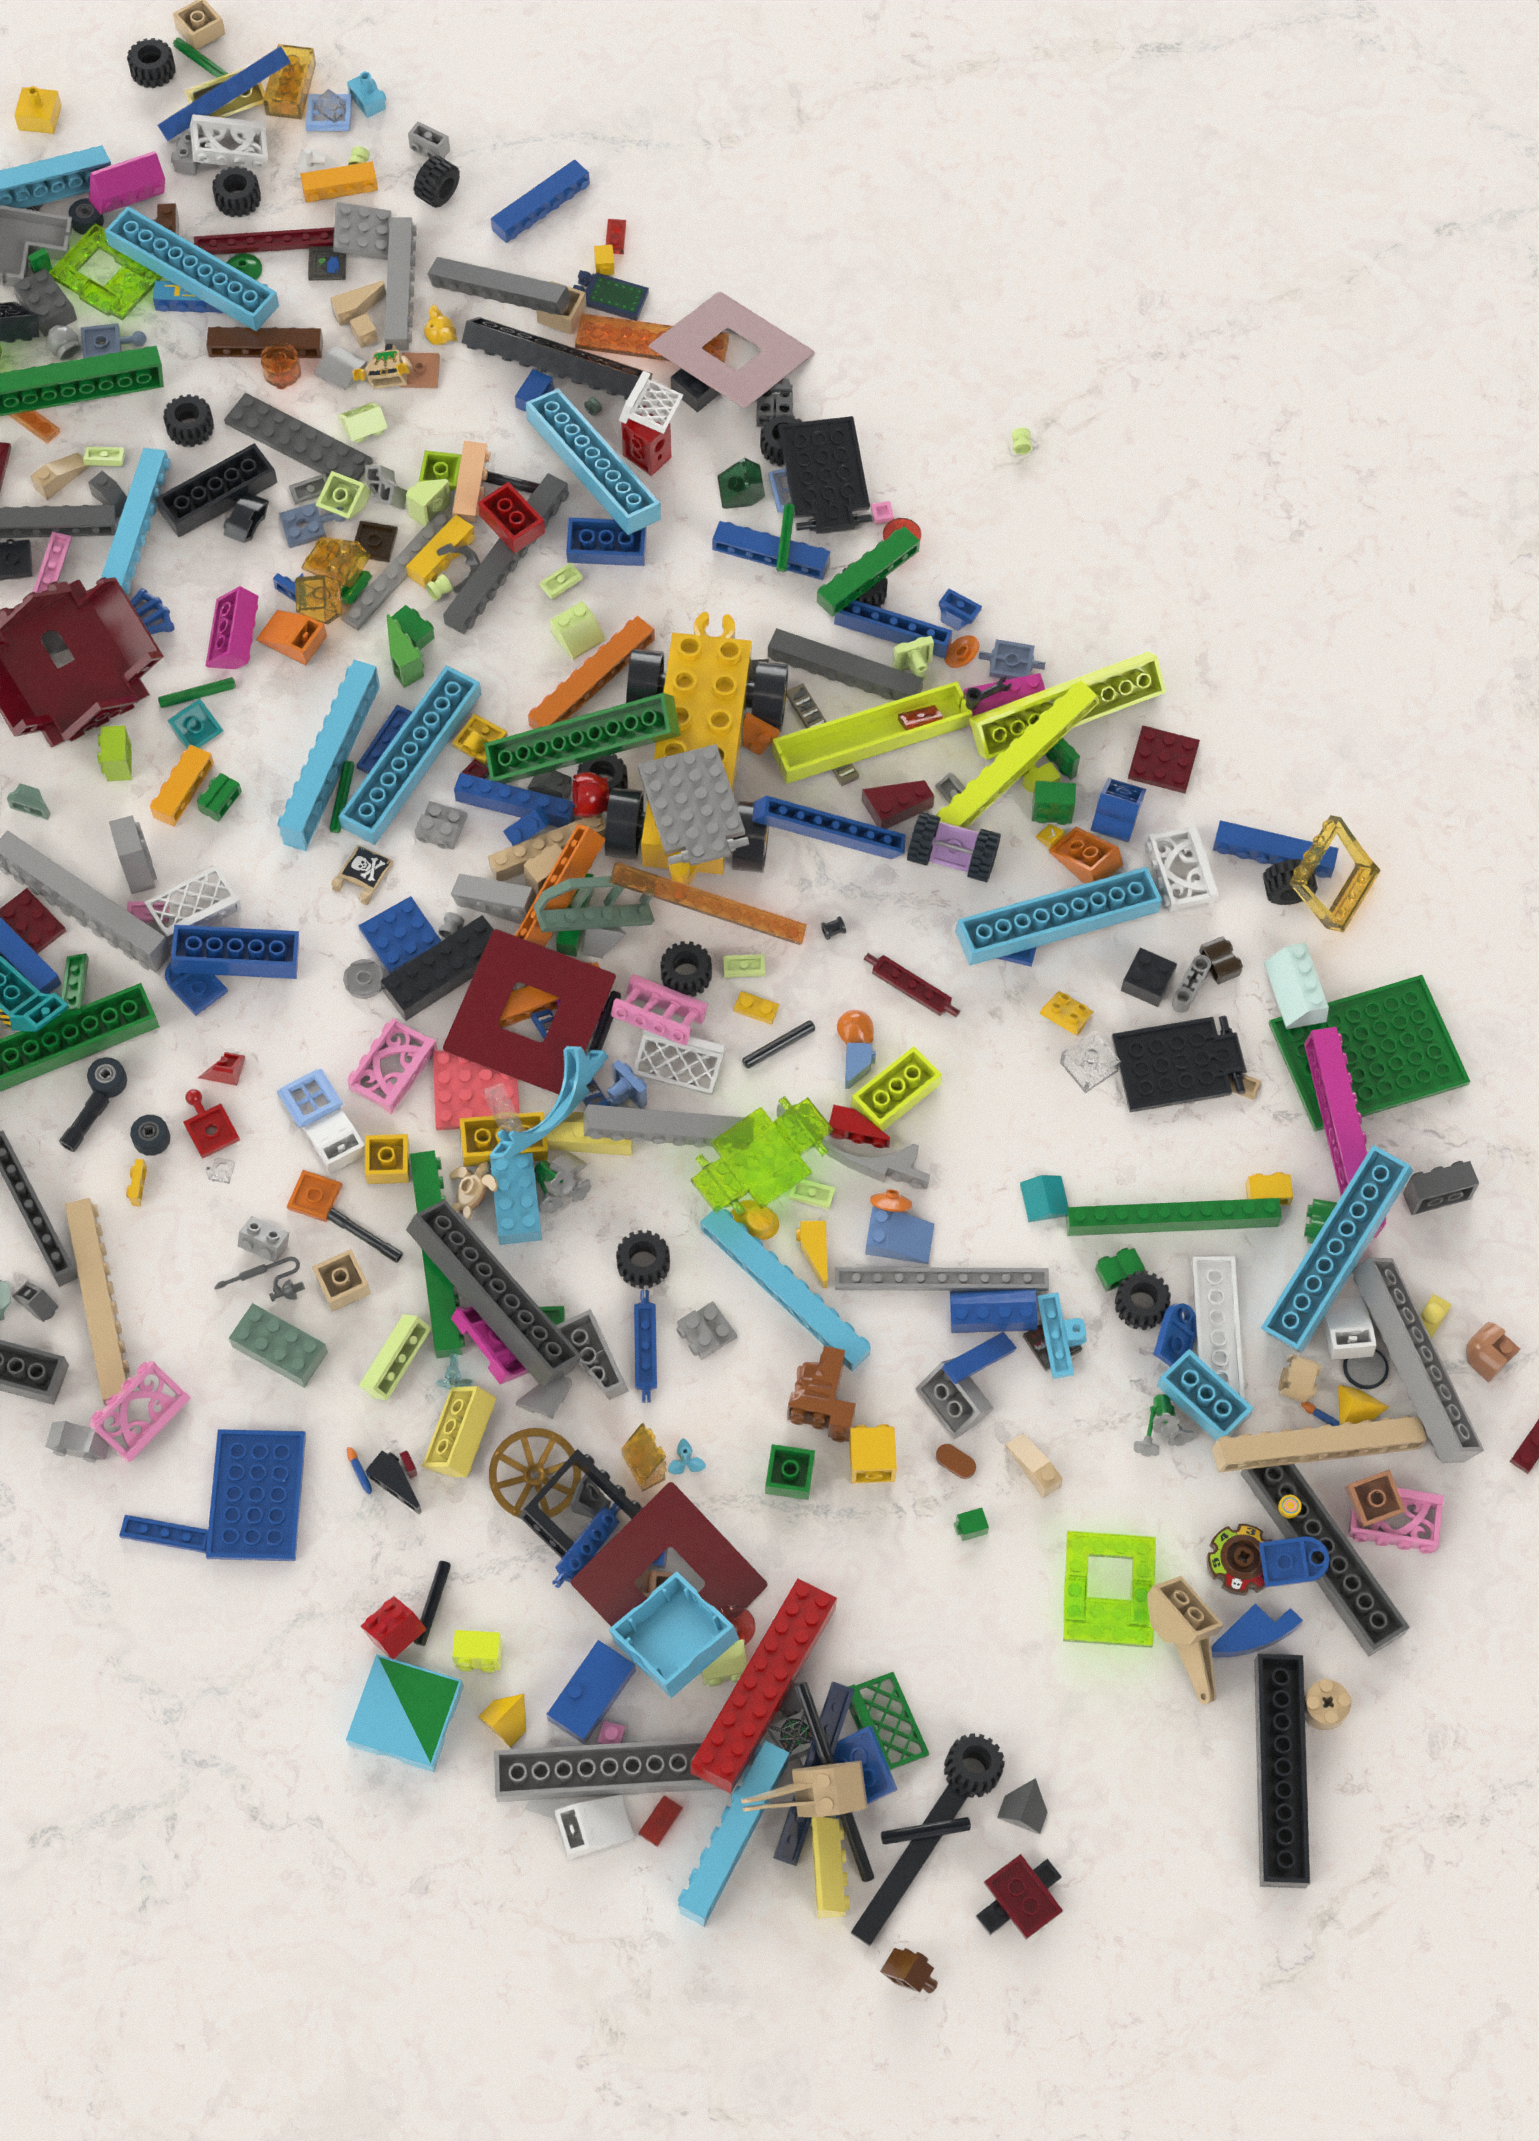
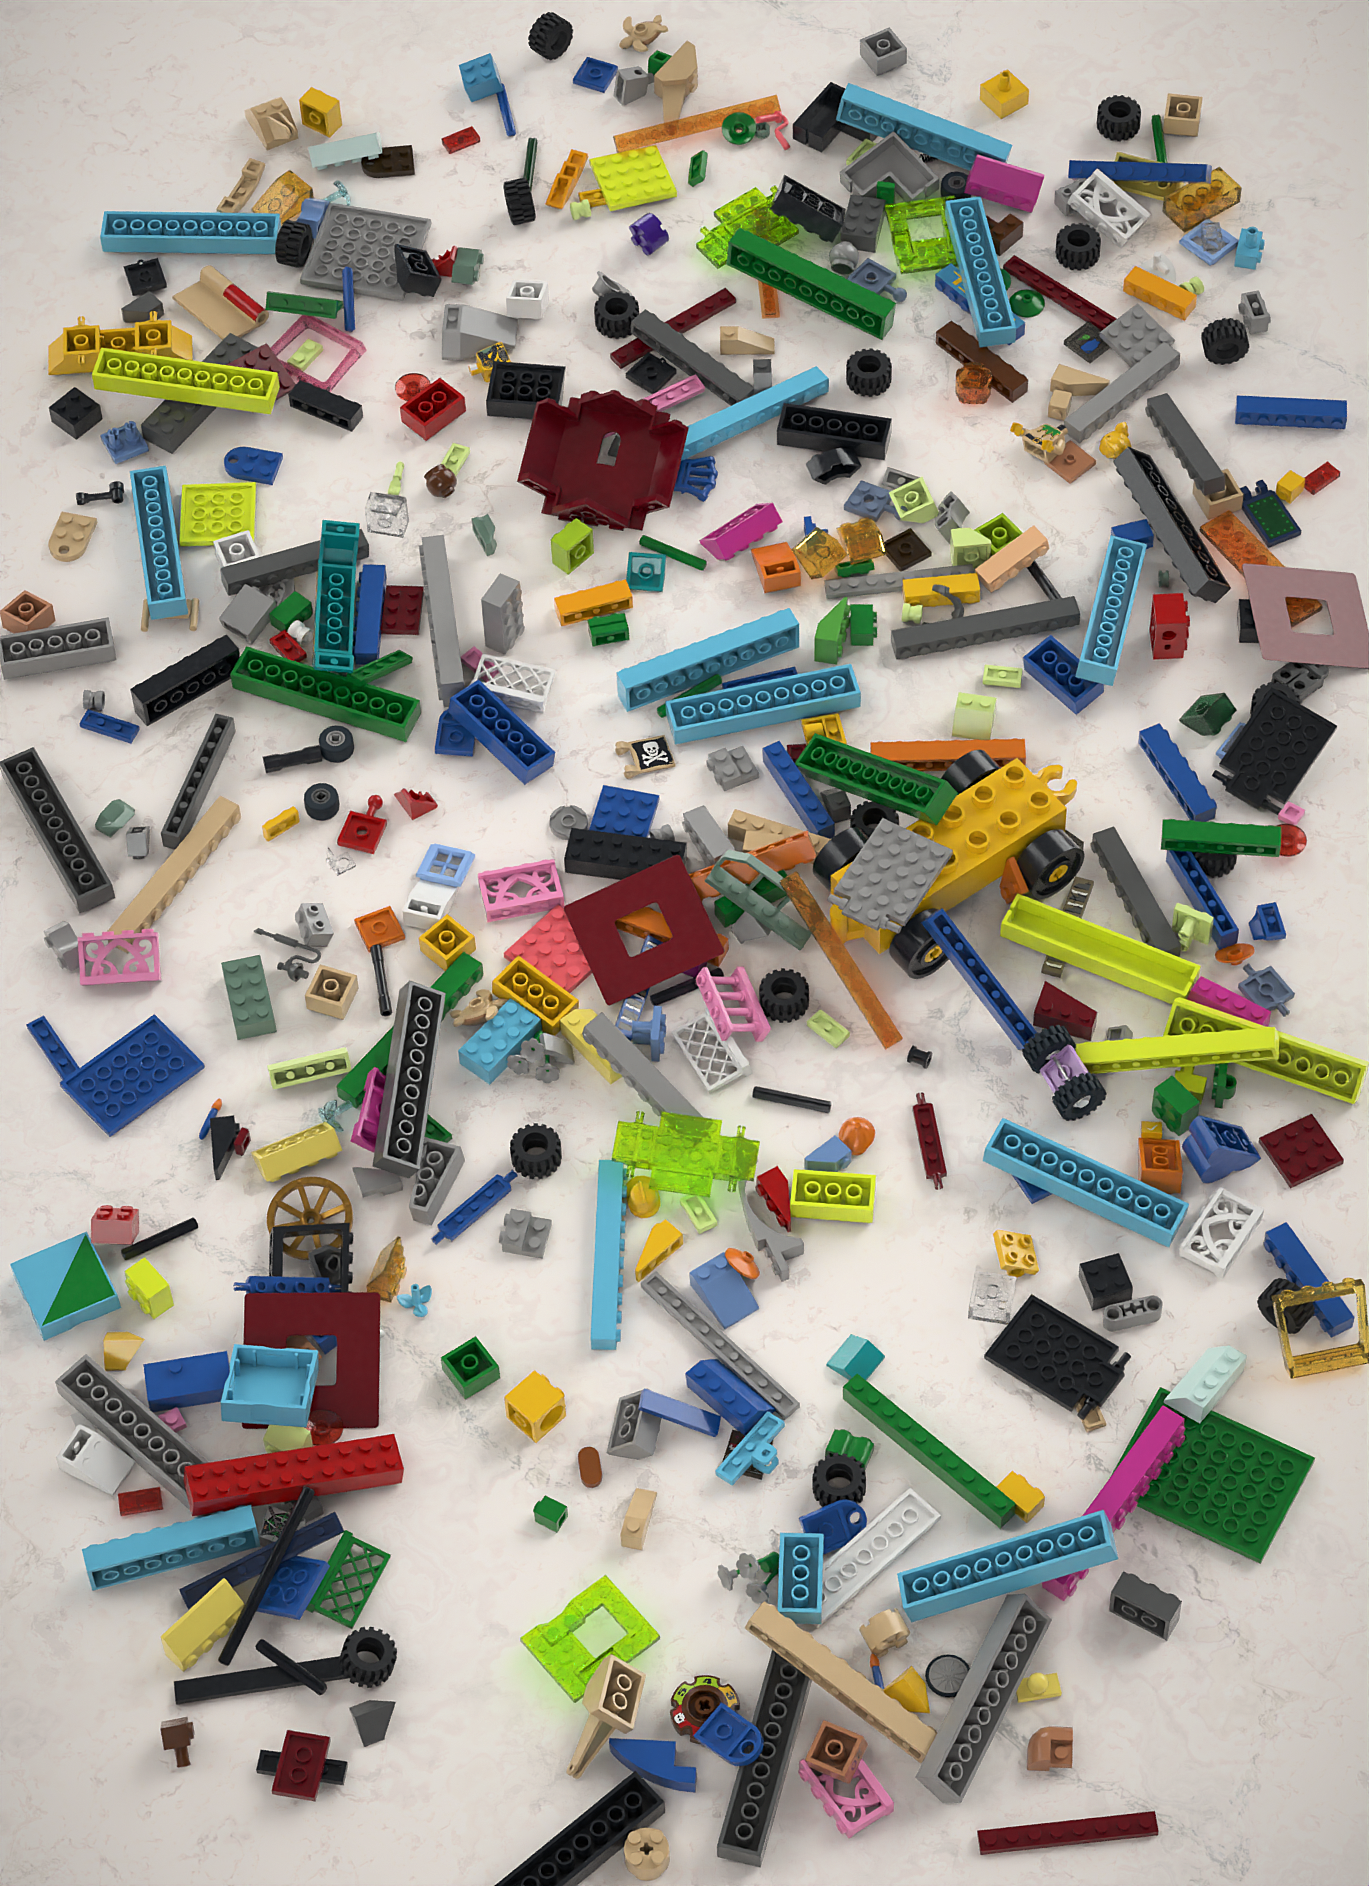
camera: 50 degrees right, 10 degrees down
(104, 456) = (787, 353): yellowish green plate -> none
(296, 439) = (930, 442): dark grey plate -> none
(338, 367) = (1014, 411): light grey slope -> none
(363, 421) = (987, 464): yellowish green slope -> none
(502, 1108) = (549, 978): clear plate -> none
(511, 517) = (1007, 602): red brick -> none
(527, 826) = (784, 811): blue brick -> none
(577, 1074) = (628, 994): medium azure slope -> none
(590, 794) = (840, 818): red piece -> none
(638, 399) = (1183, 586): white fence -> none
(756, 1007) = (805, 1063): yellow plate -> none
(785, 538) = (1191, 771): green axle -> none
(816, 1396) = (549, 1336): dark orange brick -> none
(820, 1791) = (248, 1568): tan slope -> none
(919, 717) = (1145, 968): clear red plate -> none
(974, 695) = (1194, 984): black brick -> none
(1223, 962) = (1174, 1316): dark brown brick -> none
(1289, 1506) = (770, 1699): yellow tile -> none
(1349, 1330) = (959, 1635): white slope -> none

